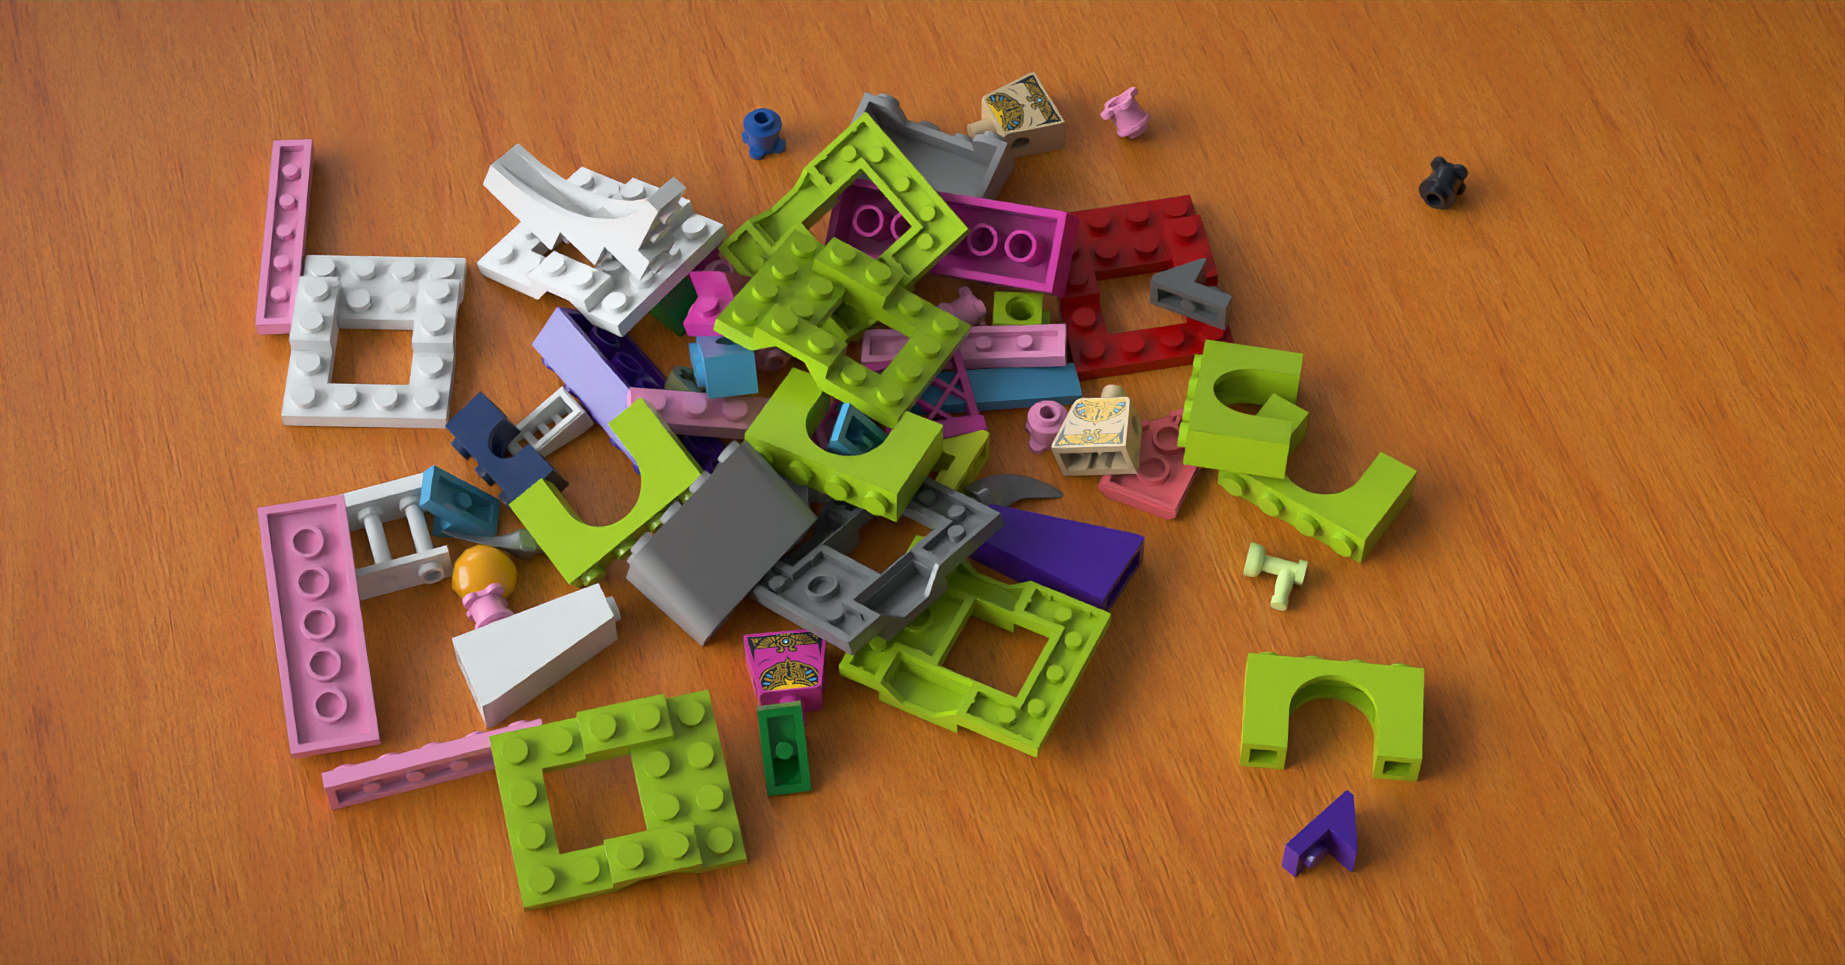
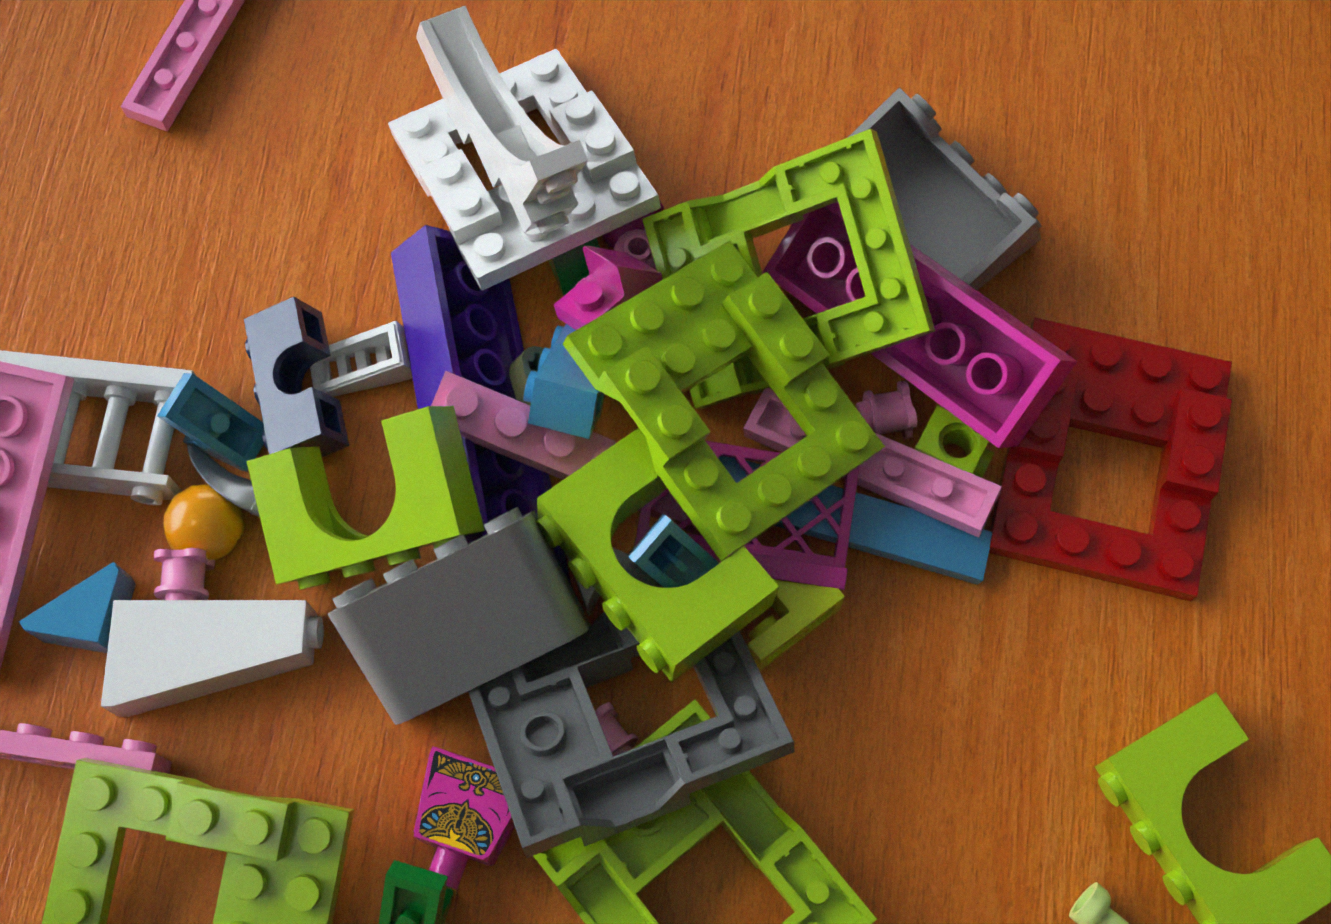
camera: 25 degrees right, 15 degrees up
(374, 294) = (264, 117): white piece -> none
(426, 668) = (82, 613): none -> dark azure slope
(762, 133) = (772, 82): blue brick -> none
(1009, 488) = (825, 668): flat silver bar -> none
(1022, 116) = (1072, 182): tan torso -> none
(1044, 424) = (919, 619): bright pink brick -> none
(1063, 555) = (860, 801): dark purple slope -> none
(1100, 436) = (978, 652): tan torso -> none
(1126, 114) = (1201, 225): bright pink brick -> none
(1161, 475) = (1031, 712): coral tile -> none
(1184, 293) = (1161, 503): dark grey slope -> none
(1230, 439) = (1117, 735): lime arch -> none

